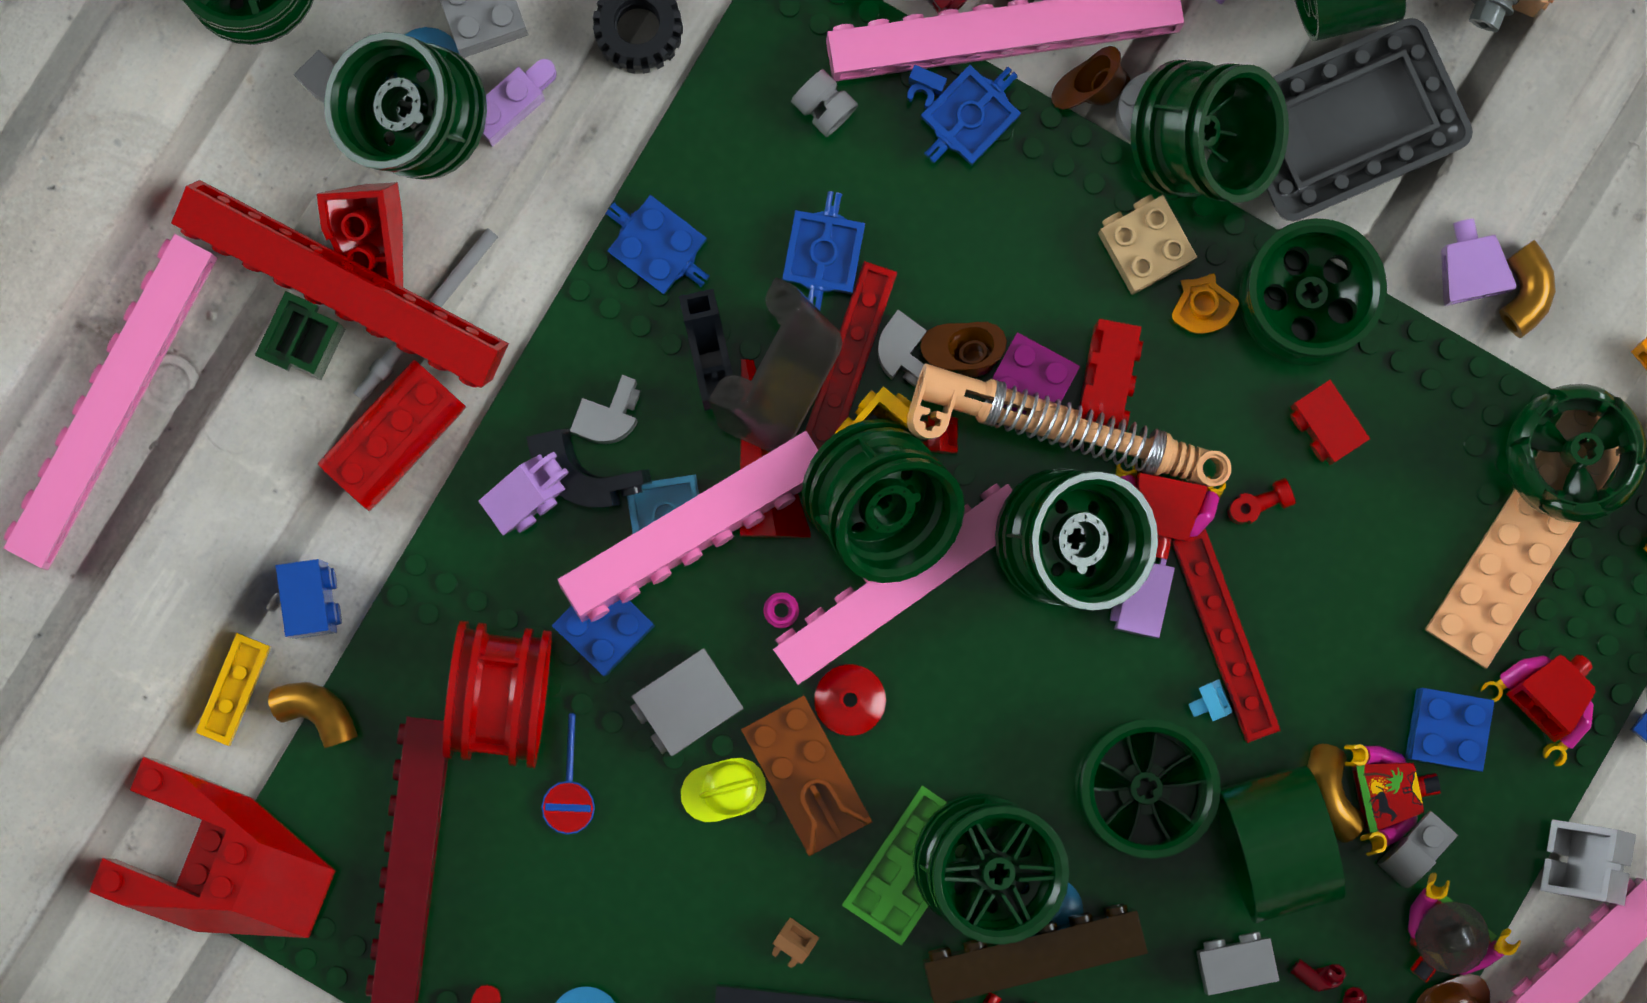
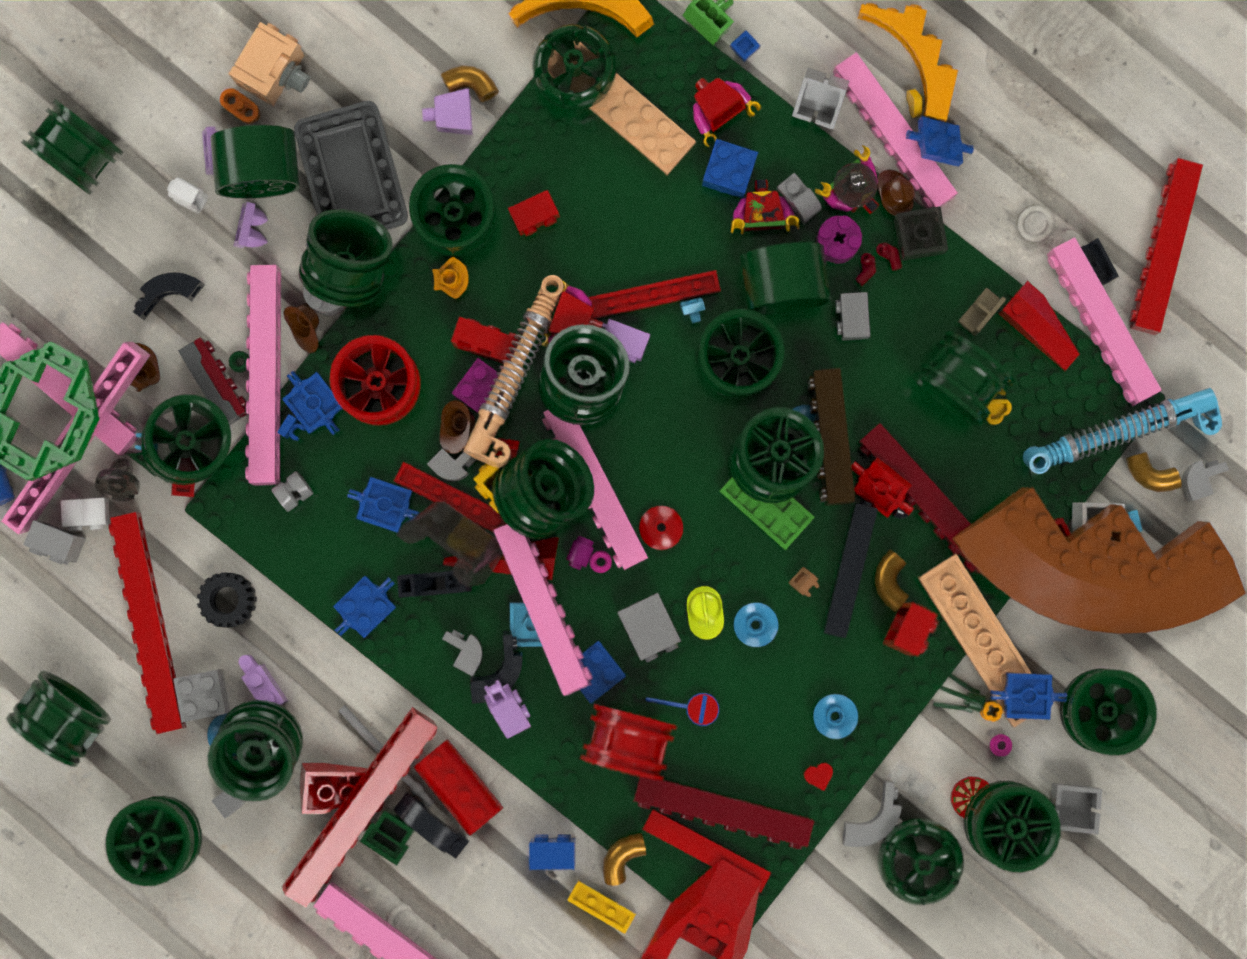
camera: 75 degrees left, 0 degrees up
(323, 397) = (429, 826): none -> black arch
(350, 832) = (698, 845): none -> red tile
(707, 892) = (766, 618): none -> dark azure dish
(790, 575) = (580, 553): none -> magenta brick
(806, 775) = (703, 560): dark orange plate -> none
(1034, 157) = (345, 367): none -> red wheel
(1146, 243) = (408, 307): tan brick -> none
(1248, 507) = (578, 269): red leg -> none
(1327, 766) = (742, 244): pearl gold cylinder -> none
(1379, 931) = (842, 227): none -> magenta brick

